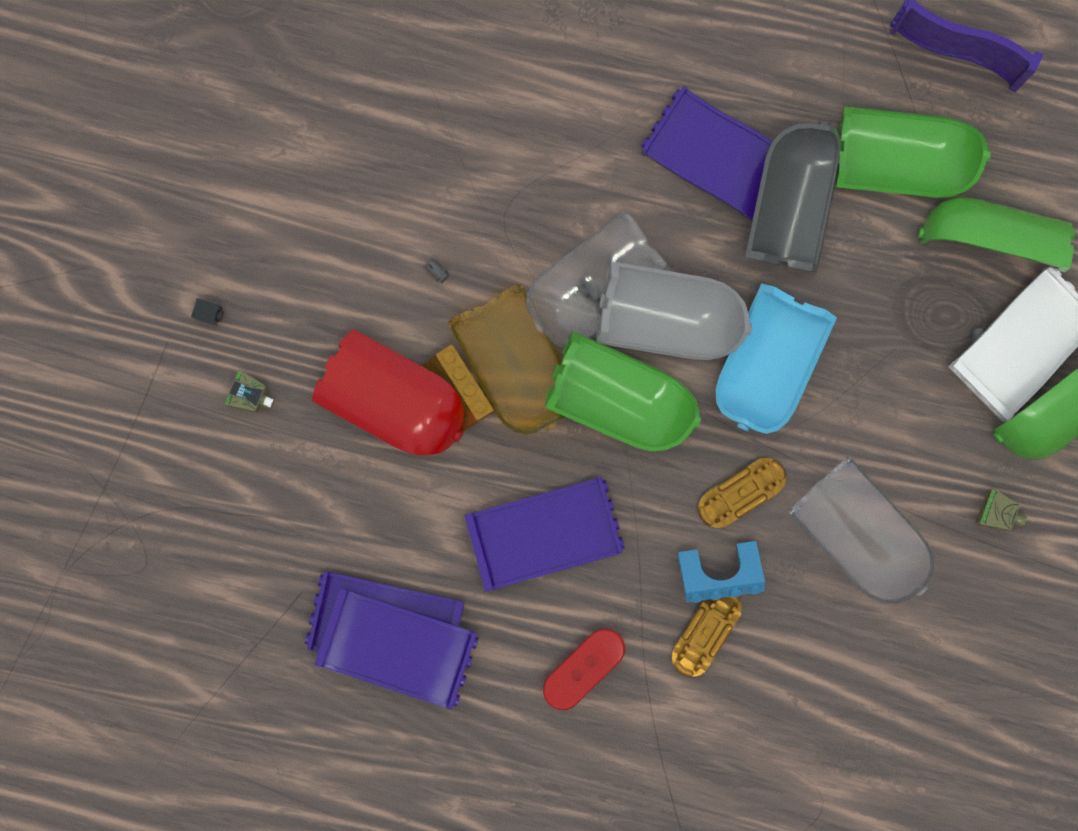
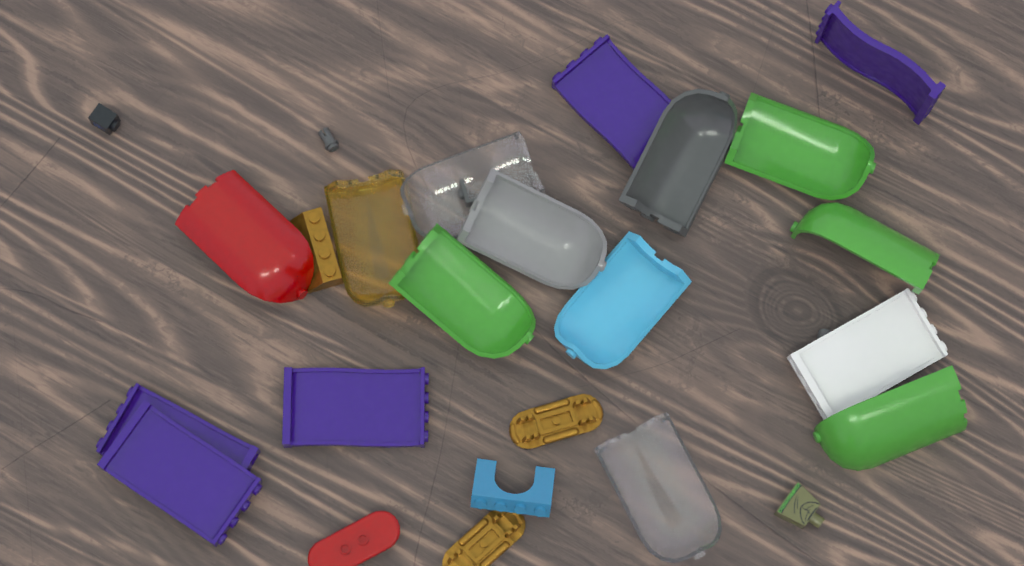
camera: 15 degrees right, 10 degrees down
(248, 394) = (118, 203): torso -> none

